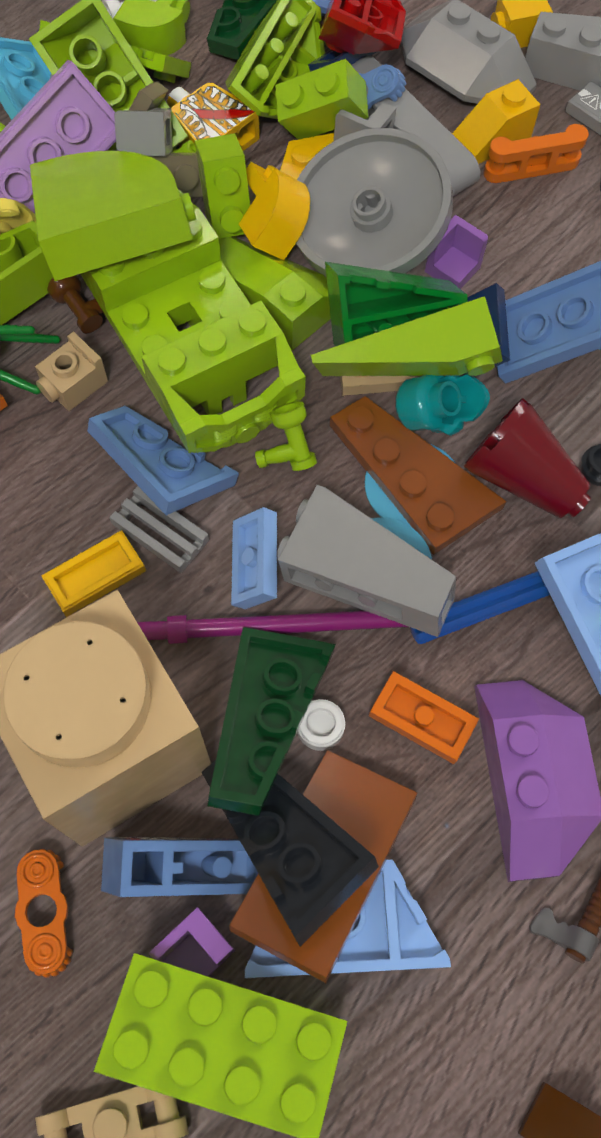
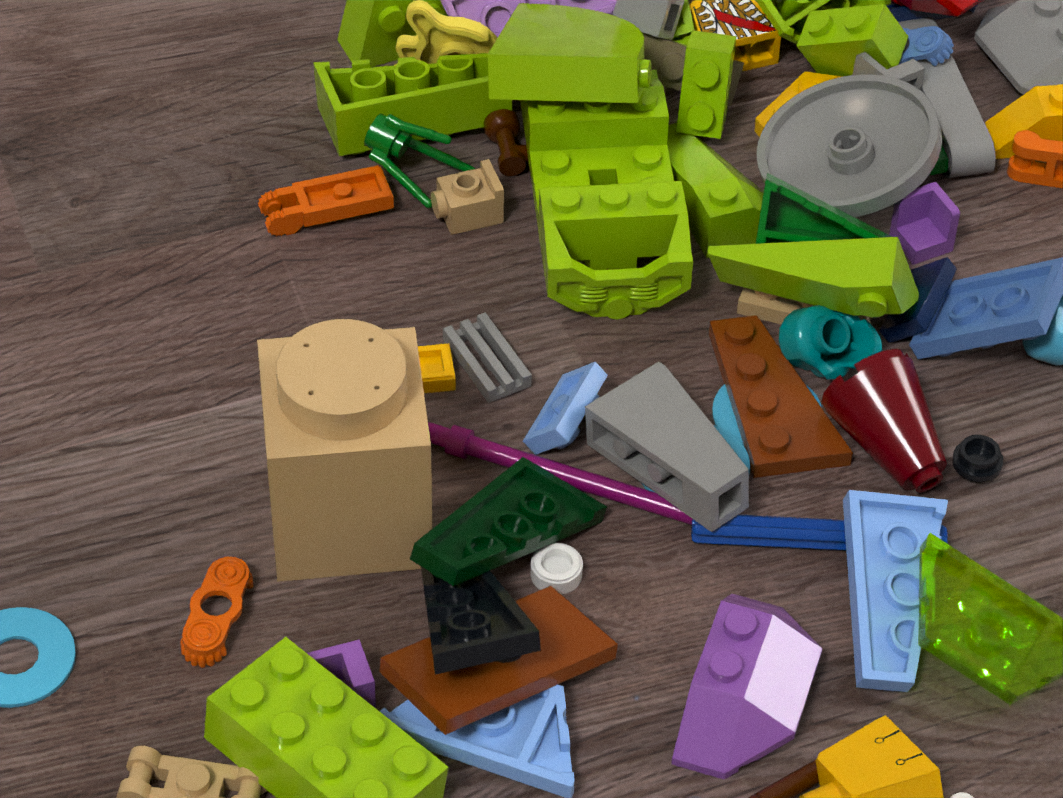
camera: 25 degrees right, 20 degrees down
(156, 463) = (513, 301): medium blue wing -> none
(175, 866) = (350, 607): medium blue slope -> none
(277, 212) = (746, 121): yellow brick -> none
(296, 450) = (659, 336): lime piece -> none
(423, 717) = (661, 595): orange plate -> none

